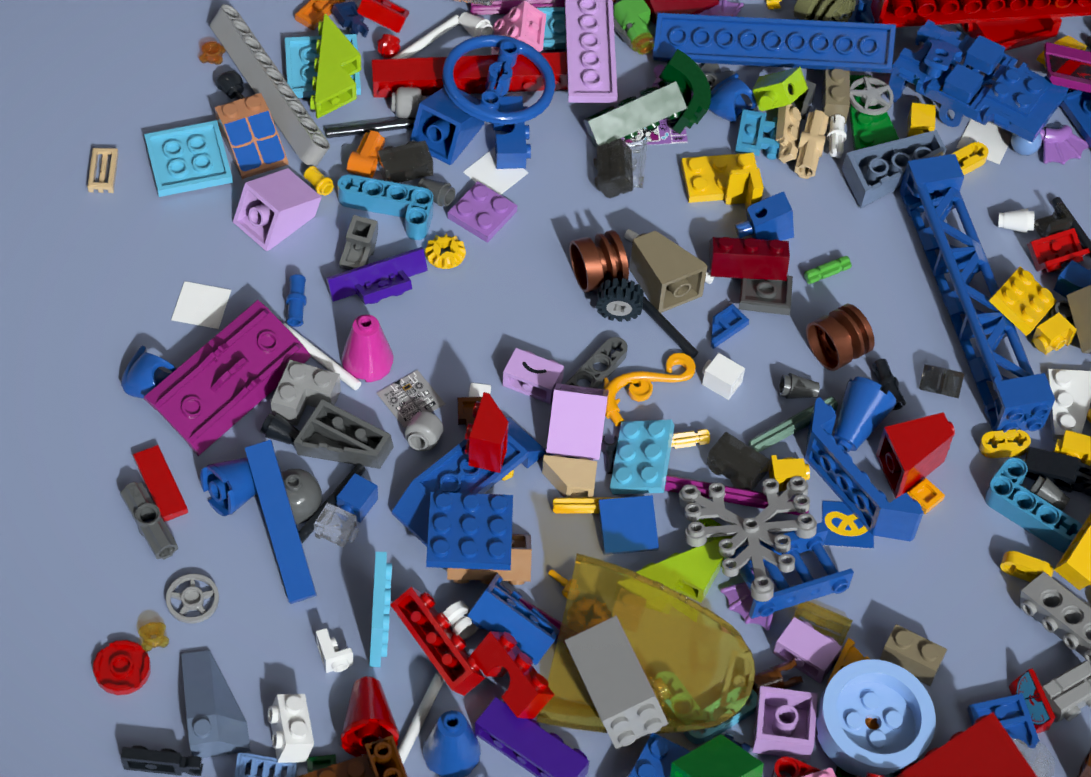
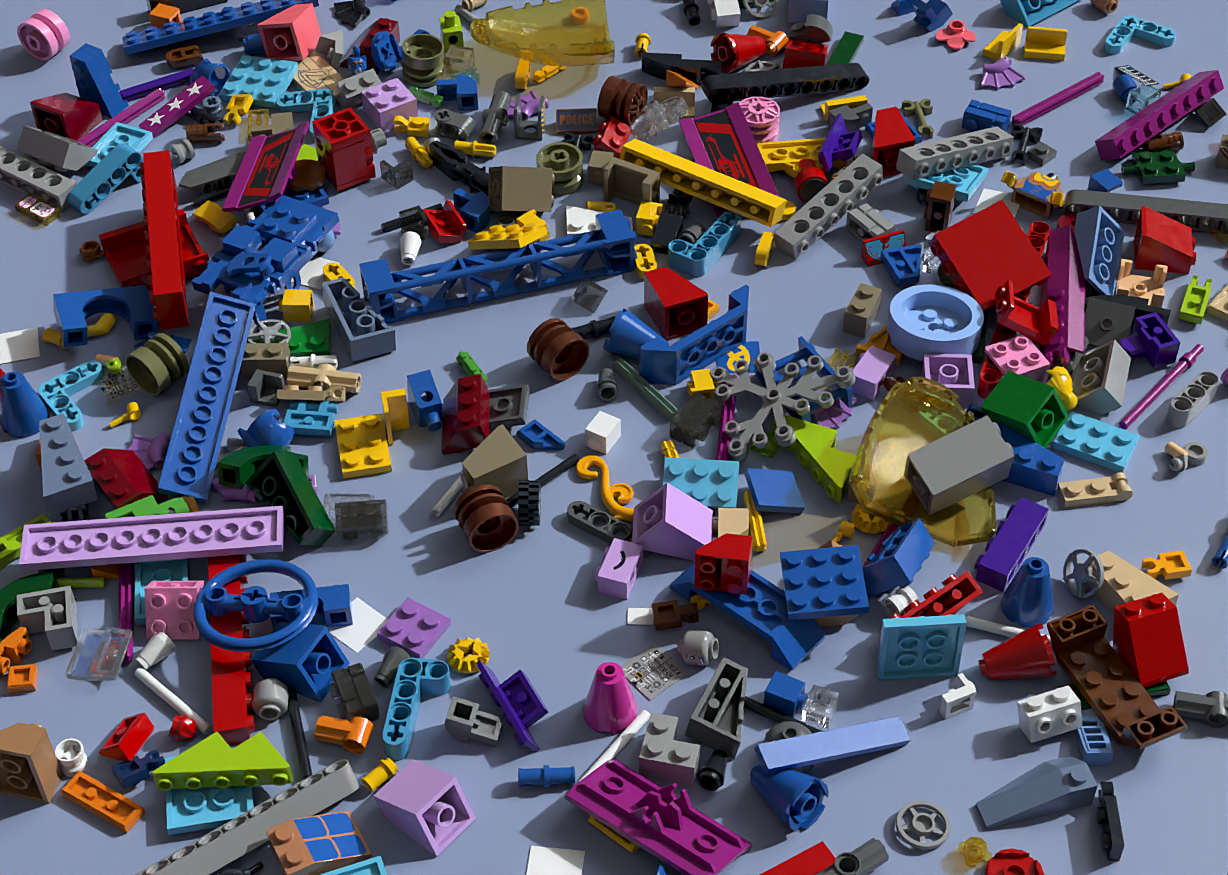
camera: 90 degrees left, 10 degrees down
(527, 688) = (943, 554): red arch -> none
(773, 89) = (267, 392): lime torso -> none

